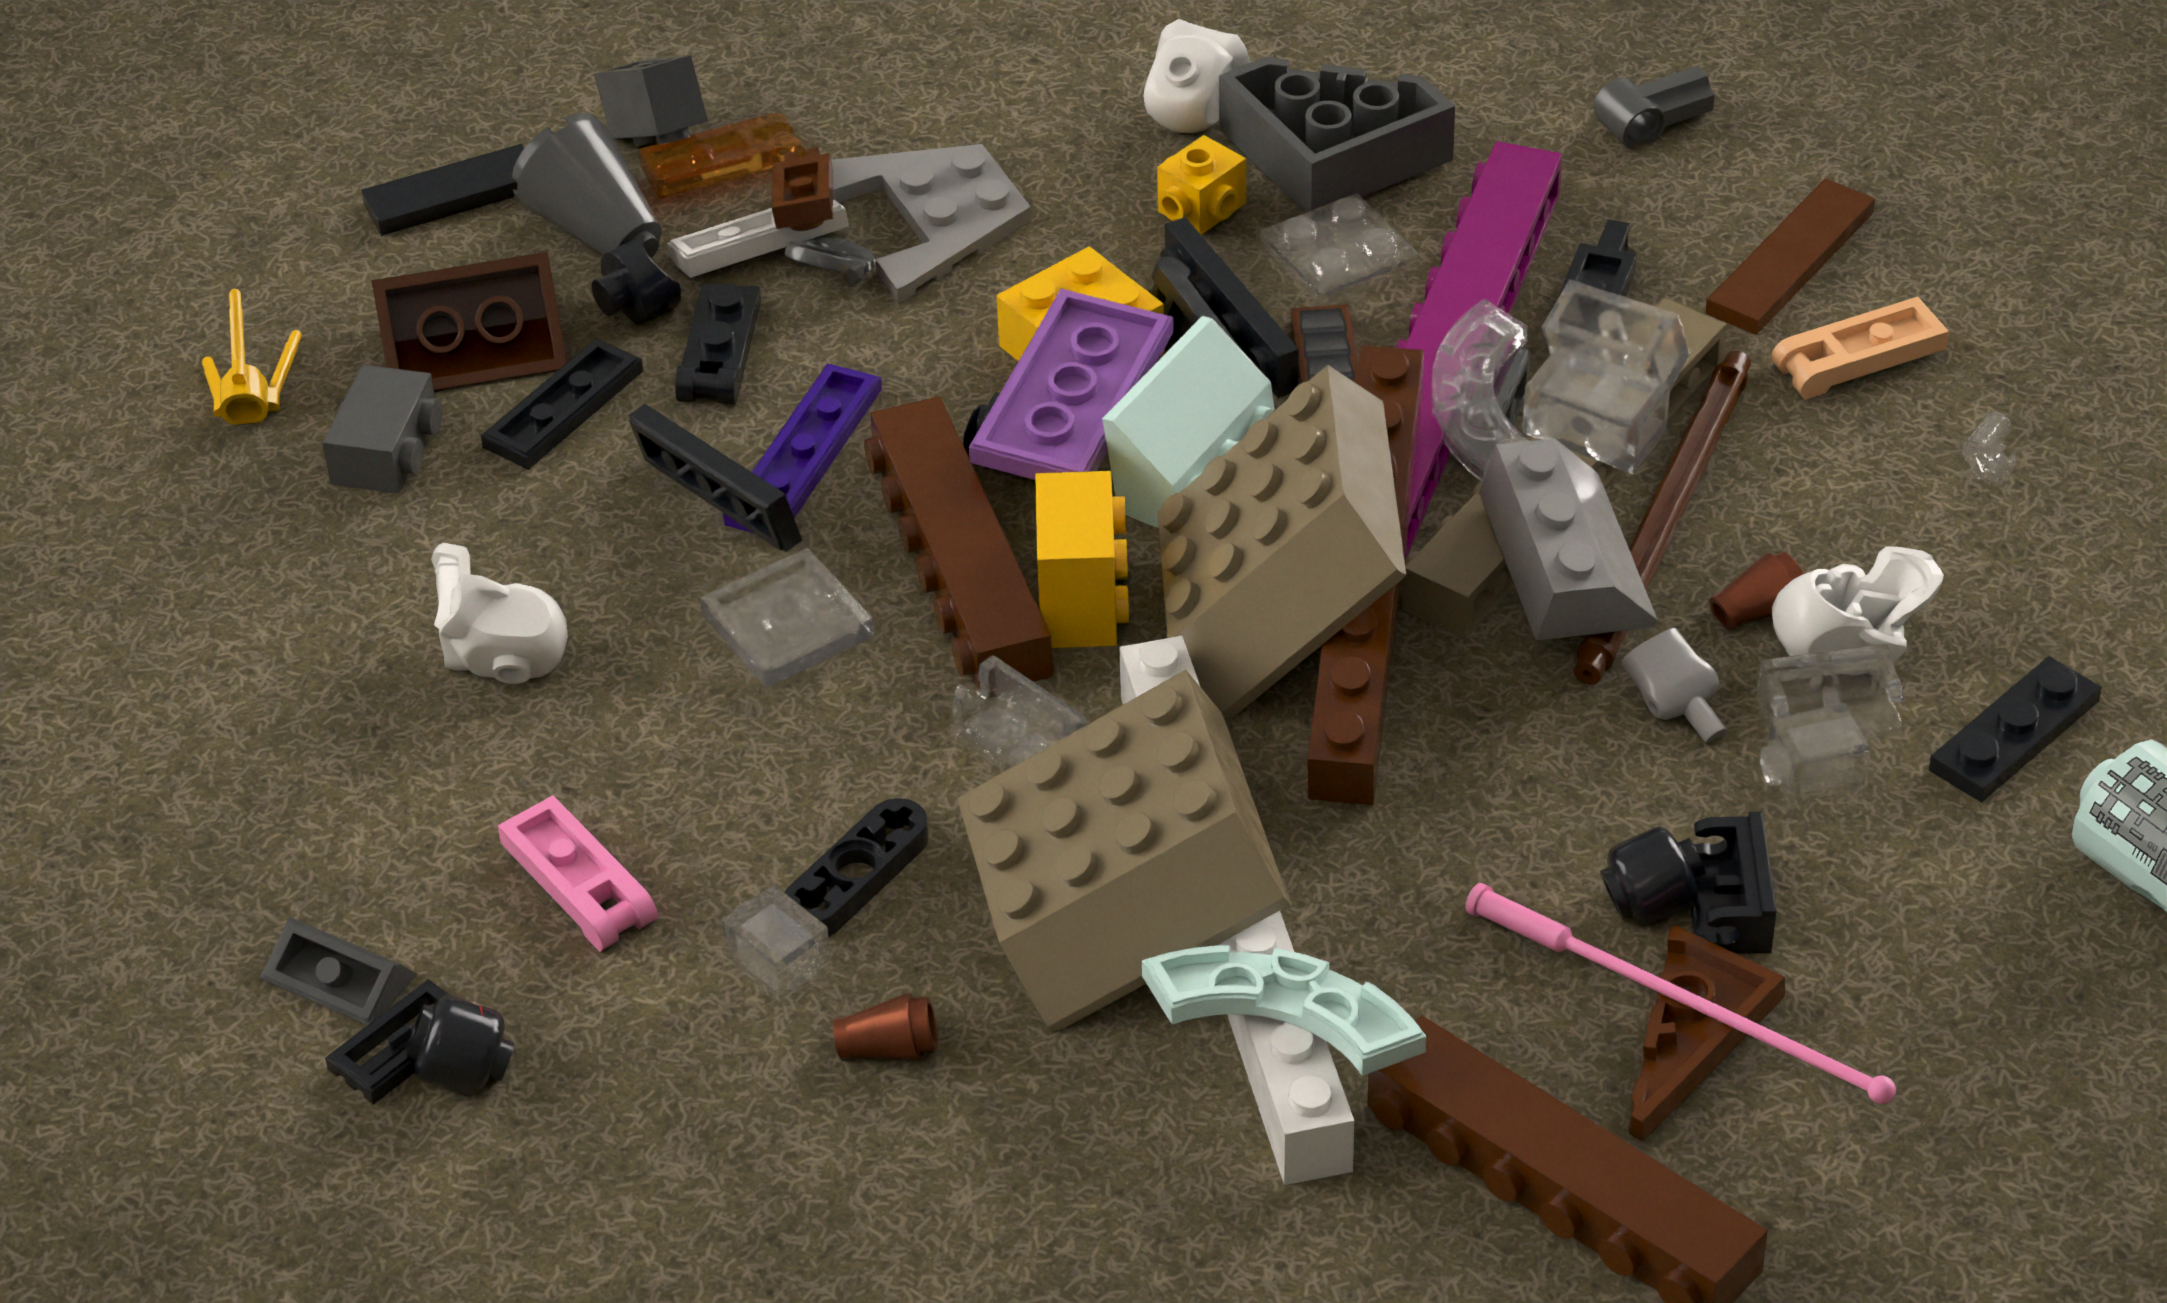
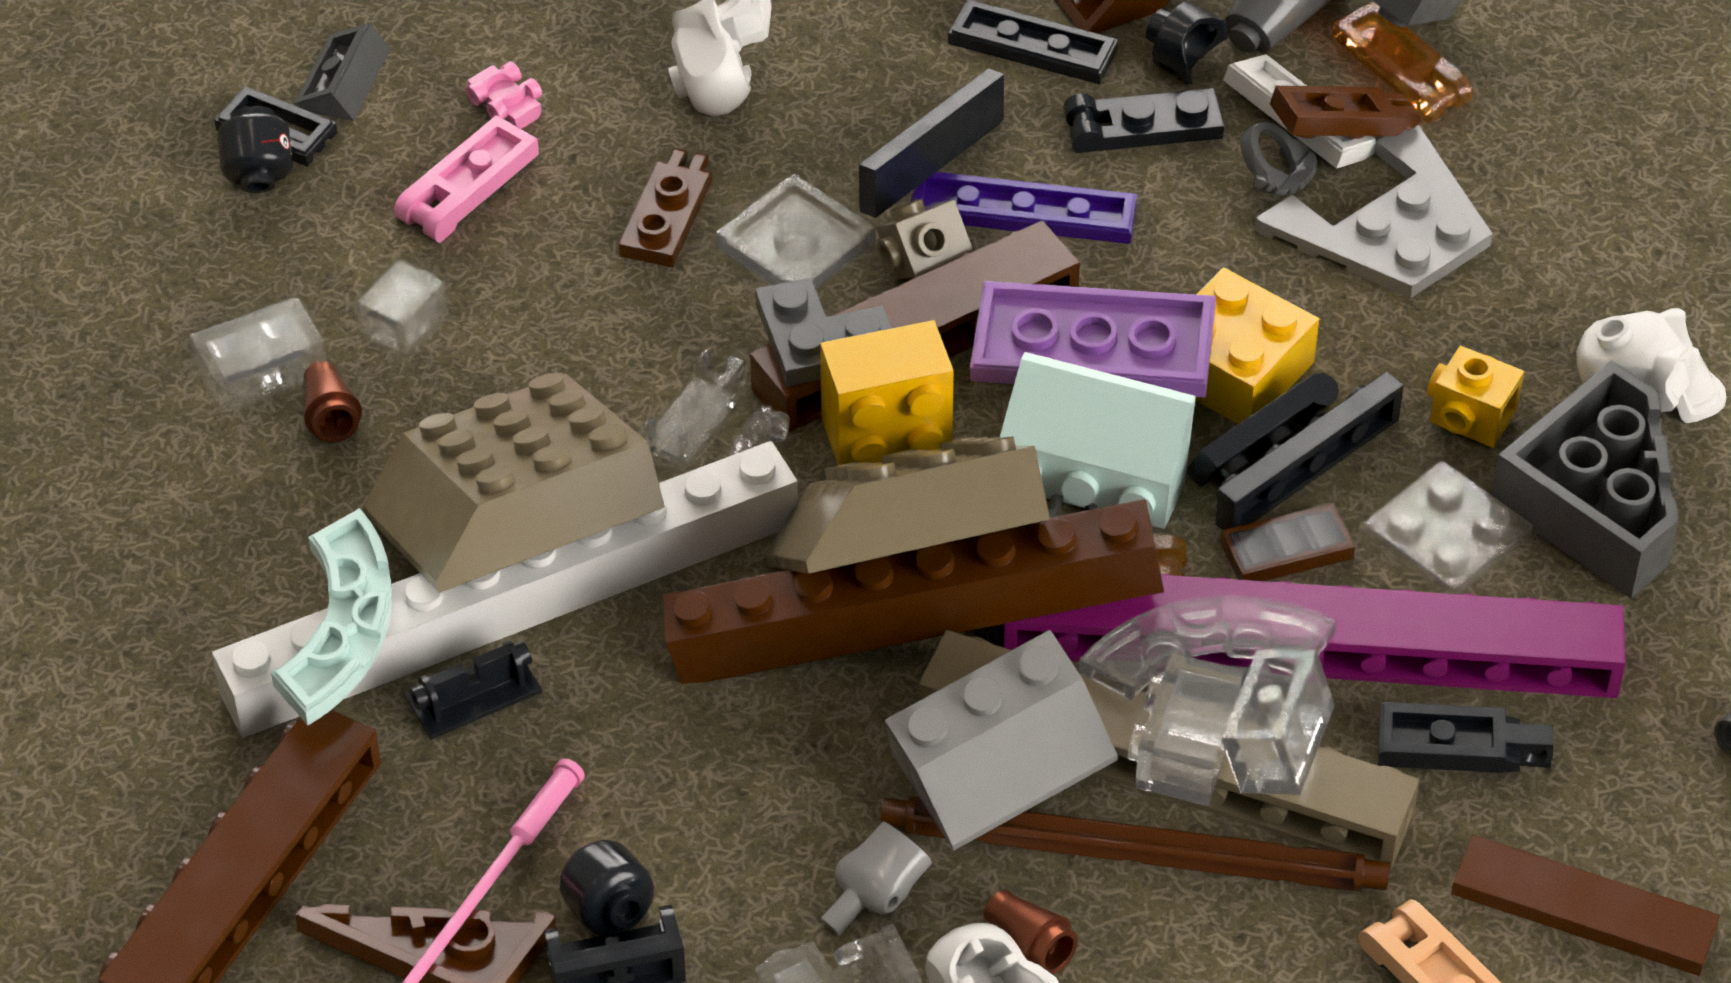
camera: 75 degrees right, 5 degrees up
(451, 829) = (504, 96): none -> bright pink piece
(690, 717) = (666, 209): none -> reddish brown hinge
(799, 1081) = (257, 355): none -> clear brick
(847, 511) = (922, 238): none -> dark tan brick
(862, 845) = (500, 329): black beam -> none
(986, 601) = (799, 324): none -> plate
(1059, 677) = (761, 425): none -> clear arm
(1346, 940) = (473, 692): none -> black hinge

